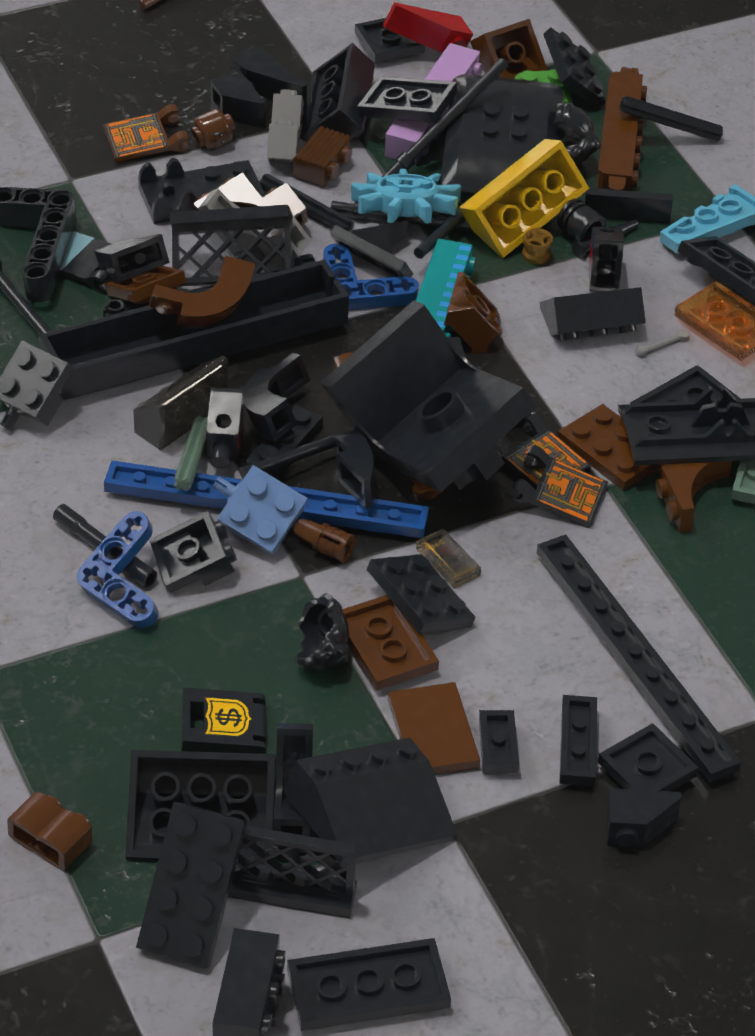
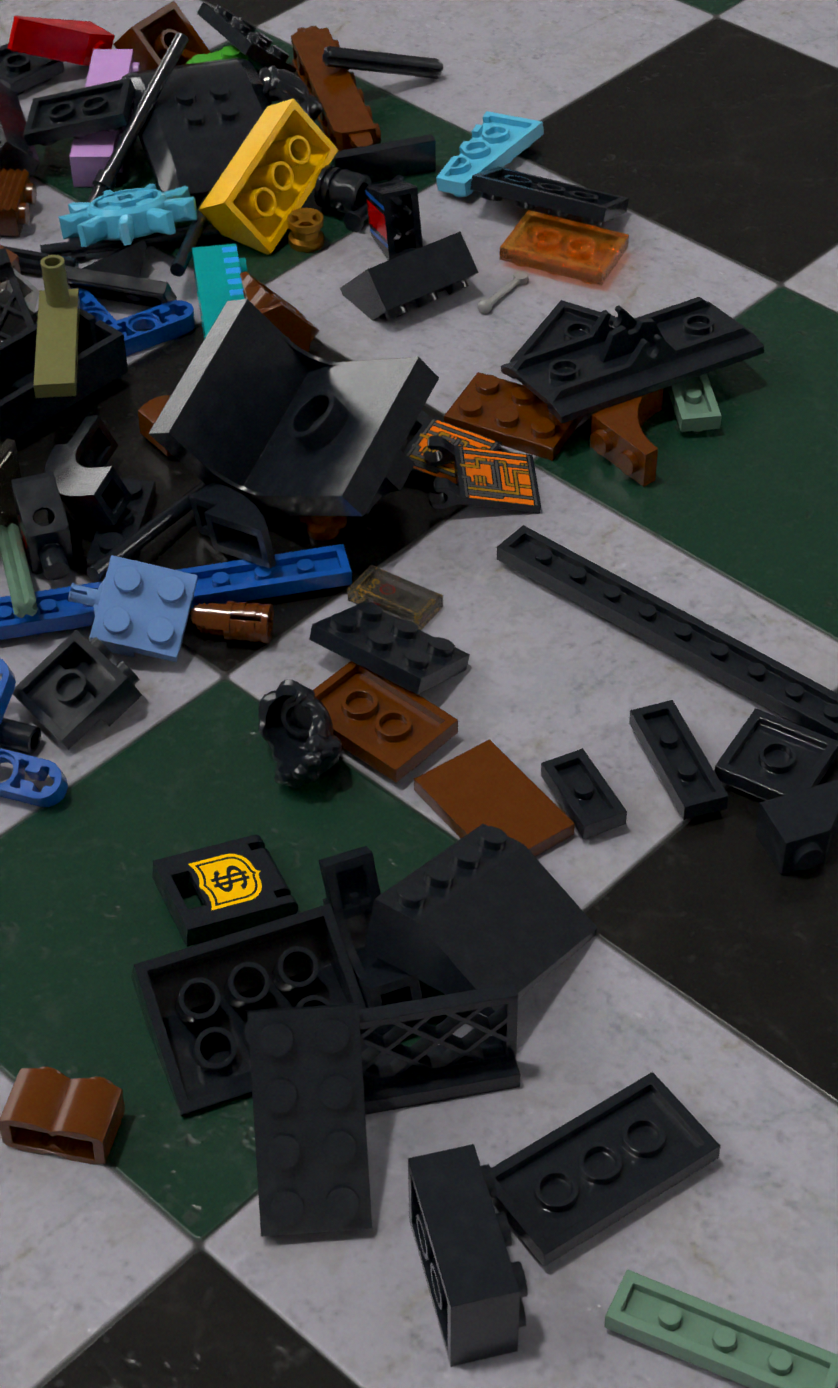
camera: 20 degrees left, 0 degrees up
(298, 283) = (56, 333): none -> olive piece

